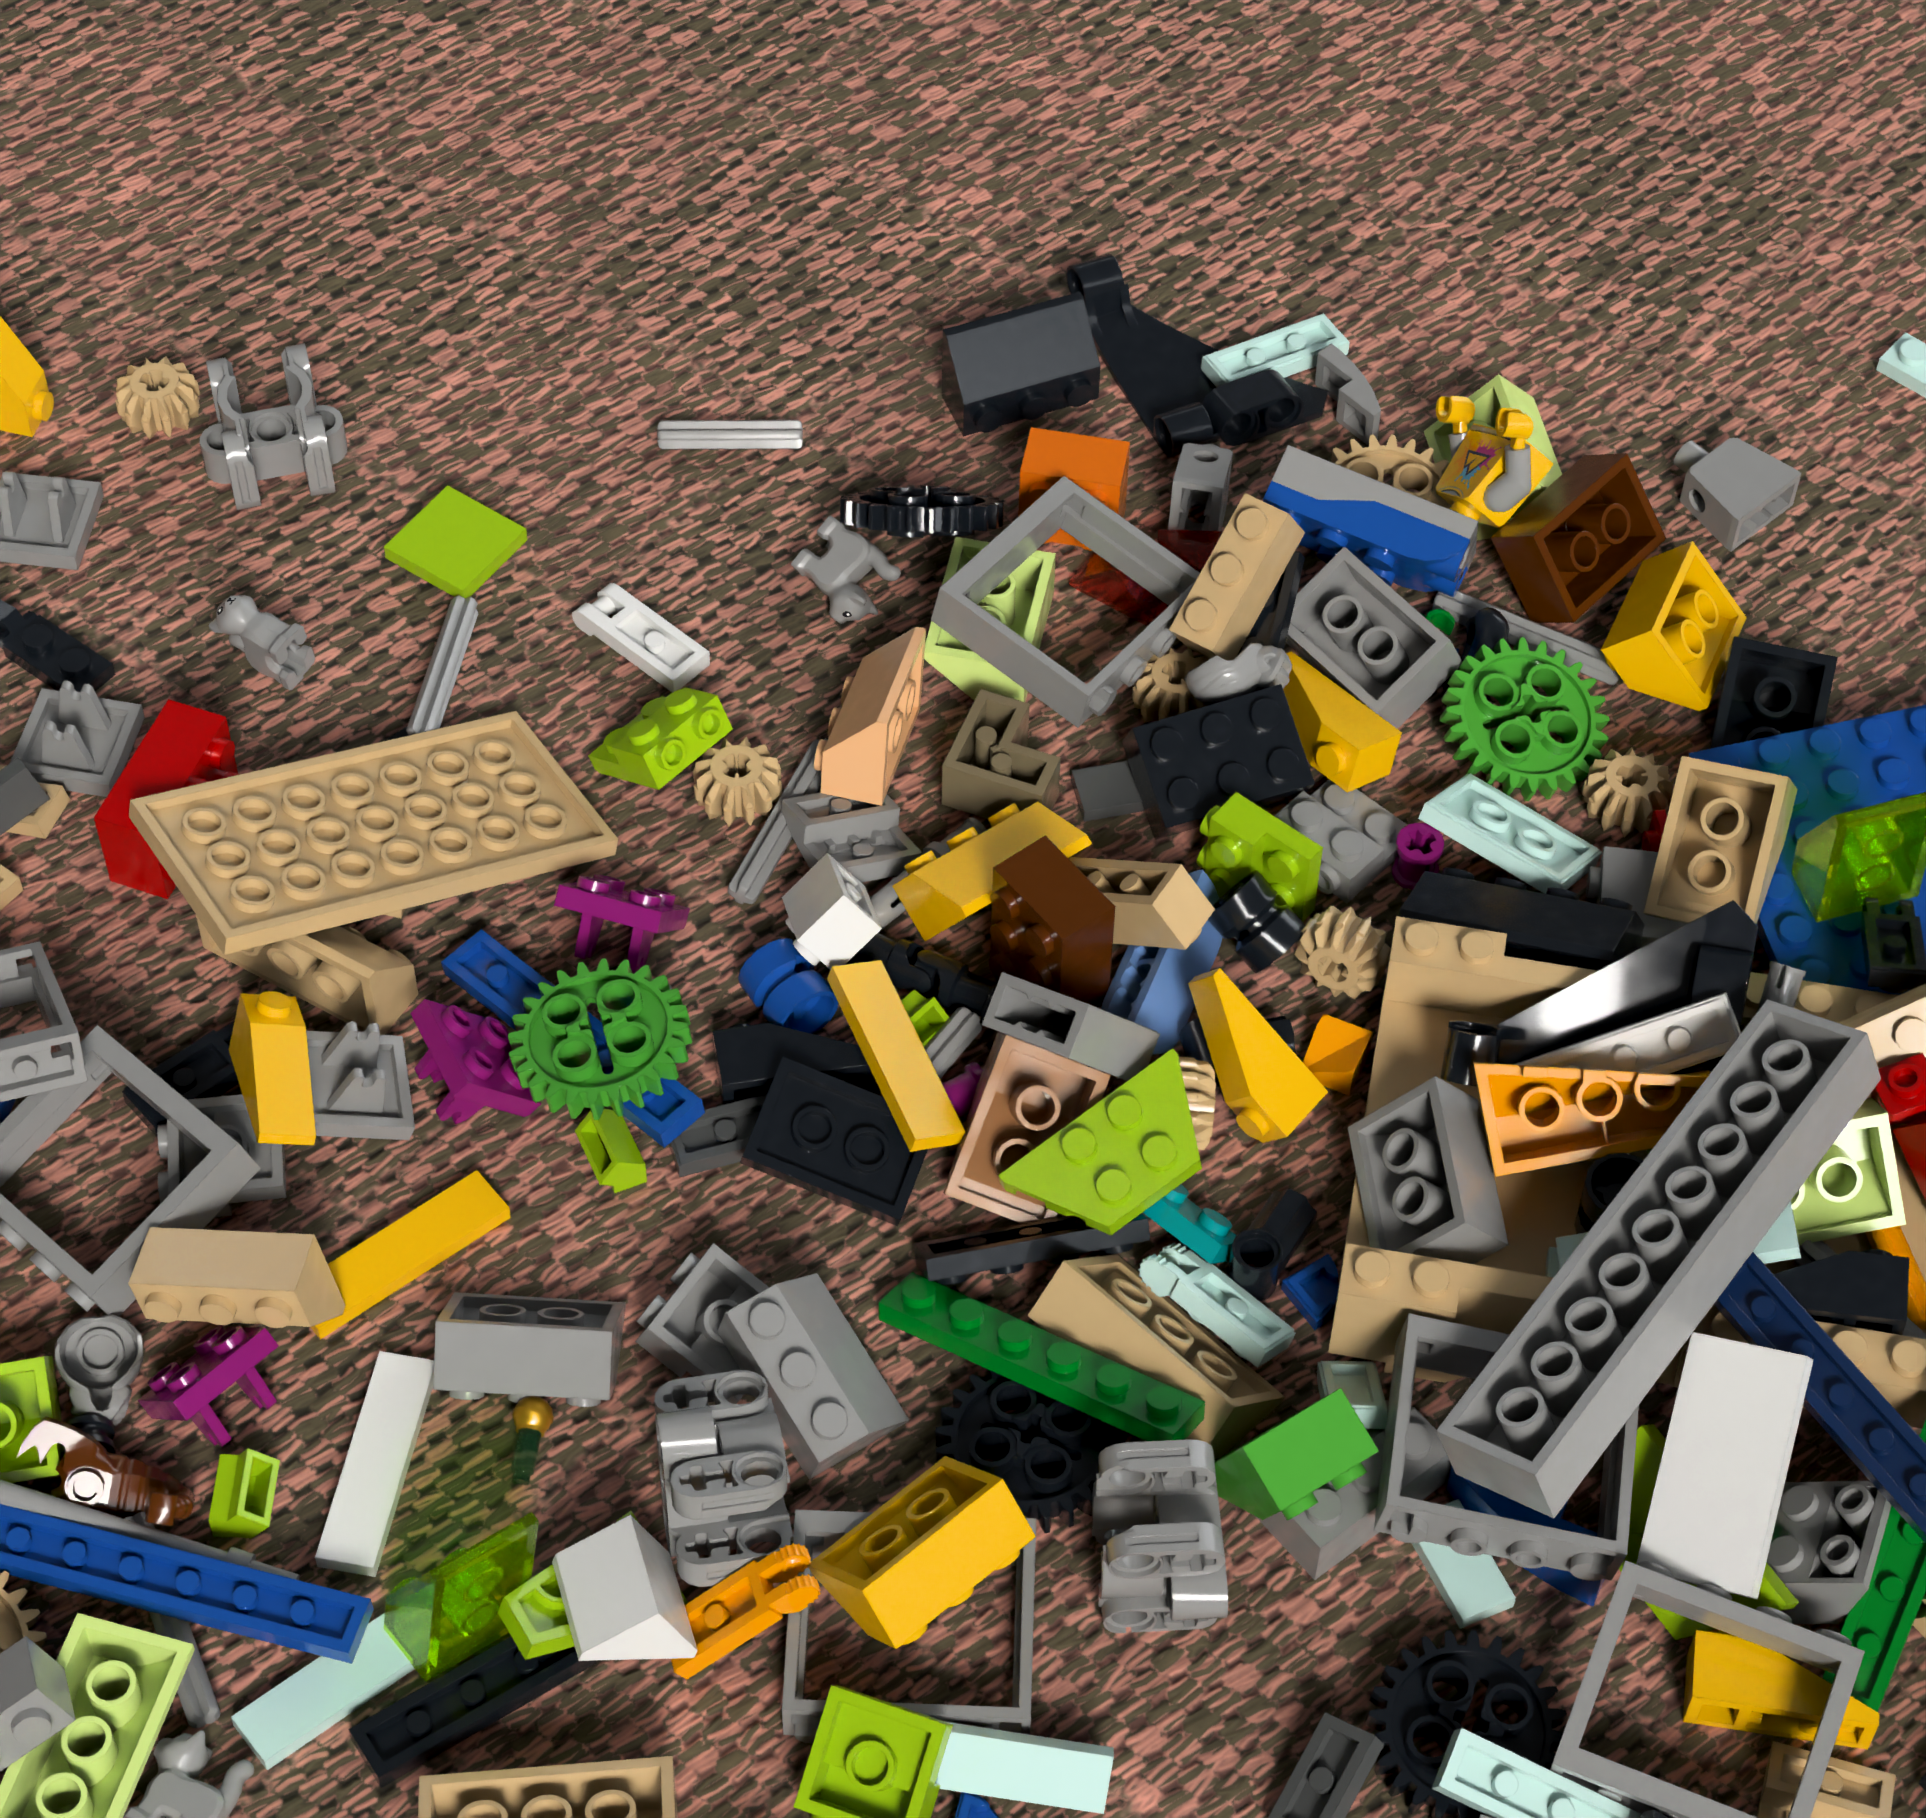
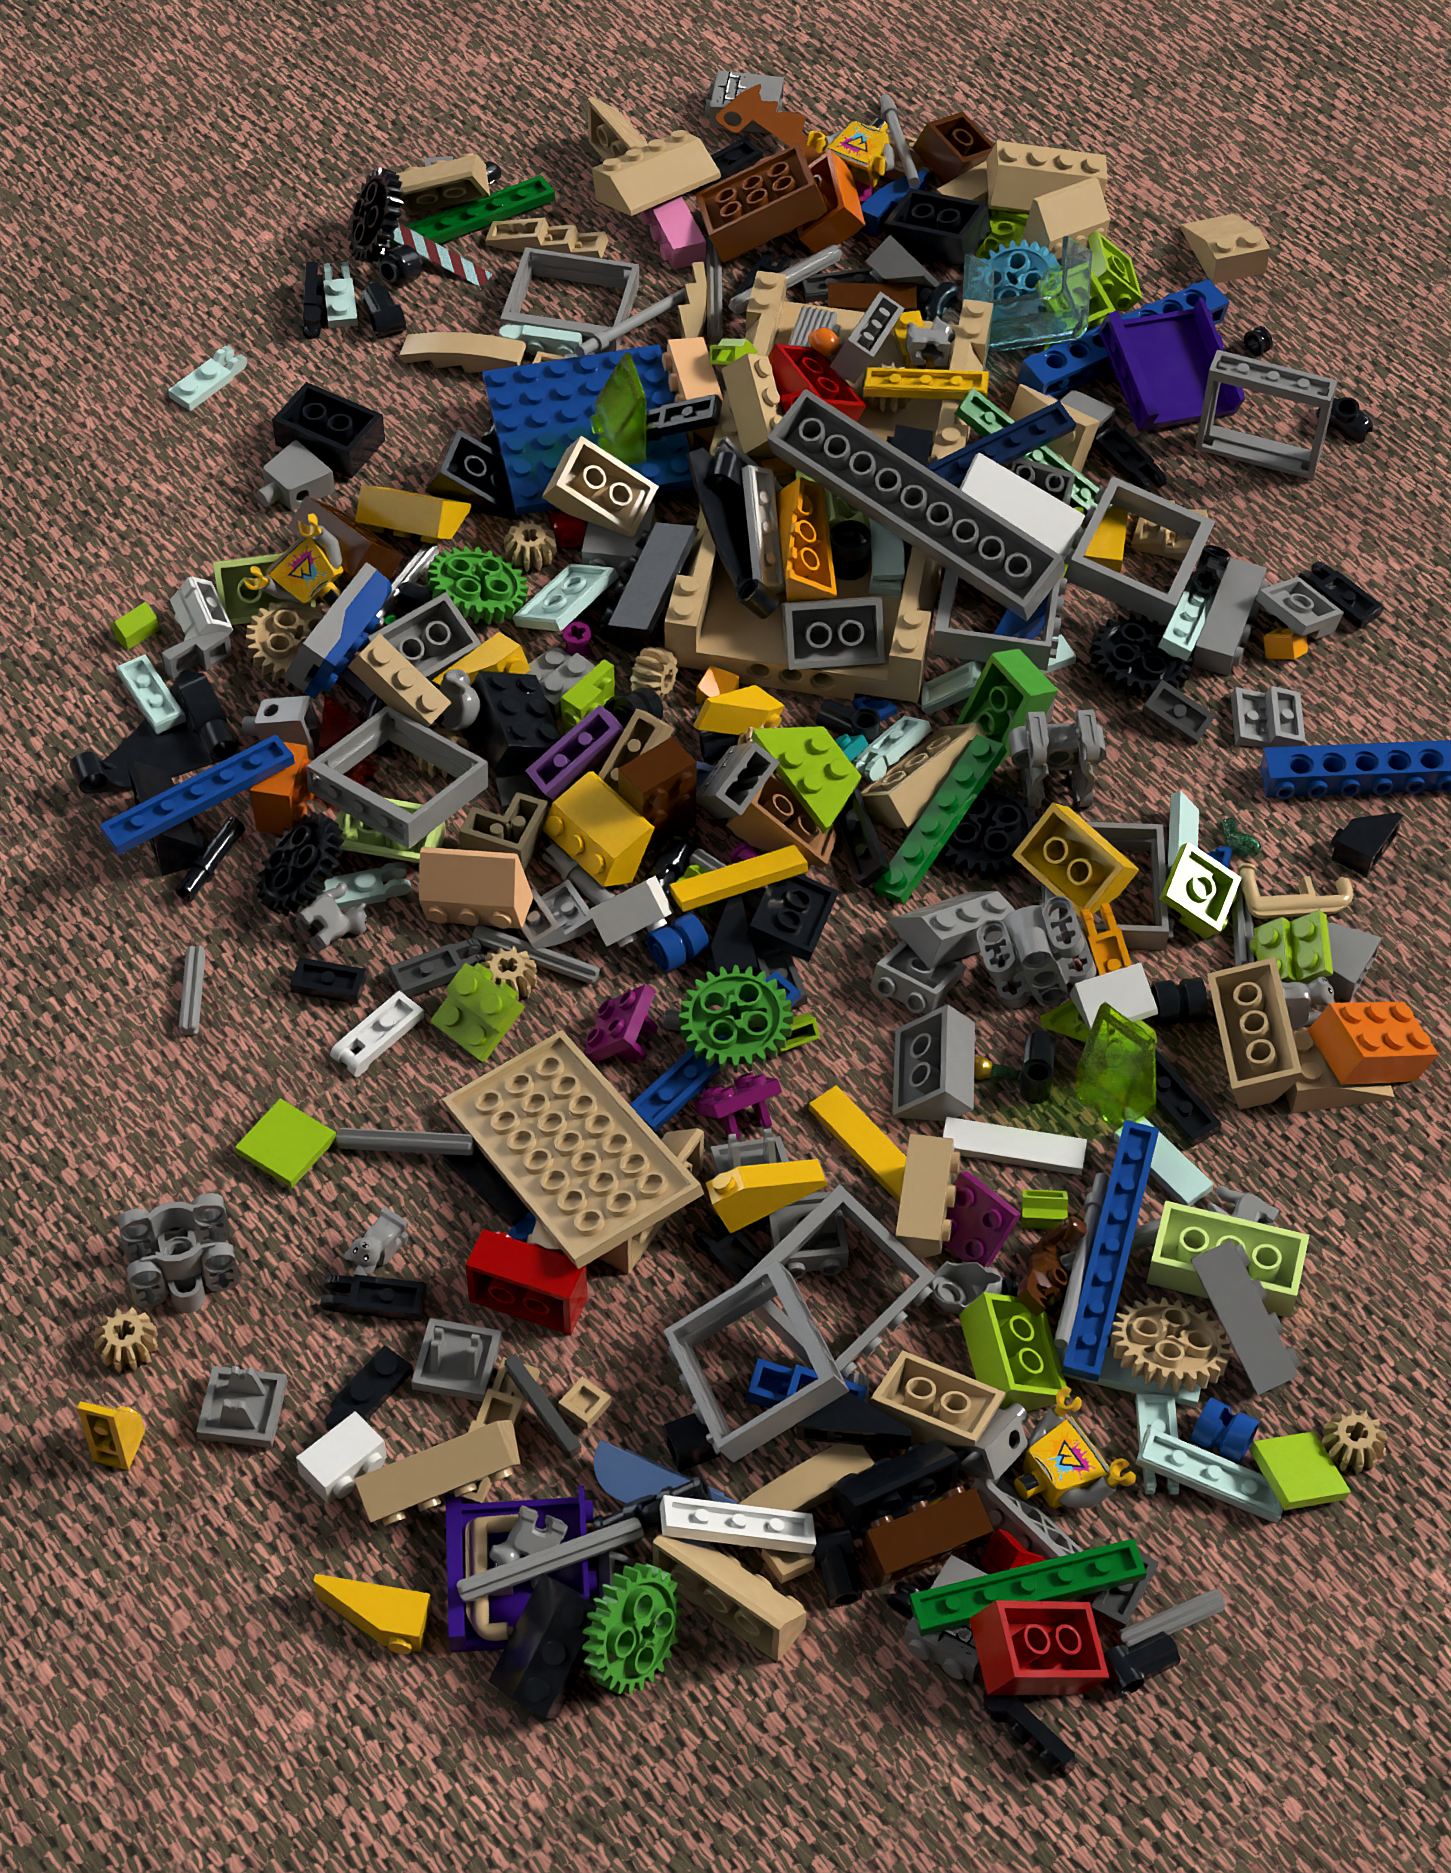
camera: 90 degrees left, 0 degrees up
(188, 656) = (375, 1296): none -> black hinge
(551, 1498) = (1037, 1067): none -> black piece
(642, 1716) = (1180, 1001): none -> black wheel
(737, 577) = (328, 980): none -> black plate
(756, 697) = (434, 967): none -> dark grey hinge
(909, 598) = (368, 885): none -> light aqua hinge
(945, 430) = (202, 868): none -> black pin
(1008, 361) = (197, 794): none -> blue plate
(1139, 827) = (576, 753): none -> medium lavender brick
(1402, 326) = (135, 626): none -> lime piece
(1417, 387) = (199, 609): none -> white brick
(1837, 517) = (330, 428): none -> black brick

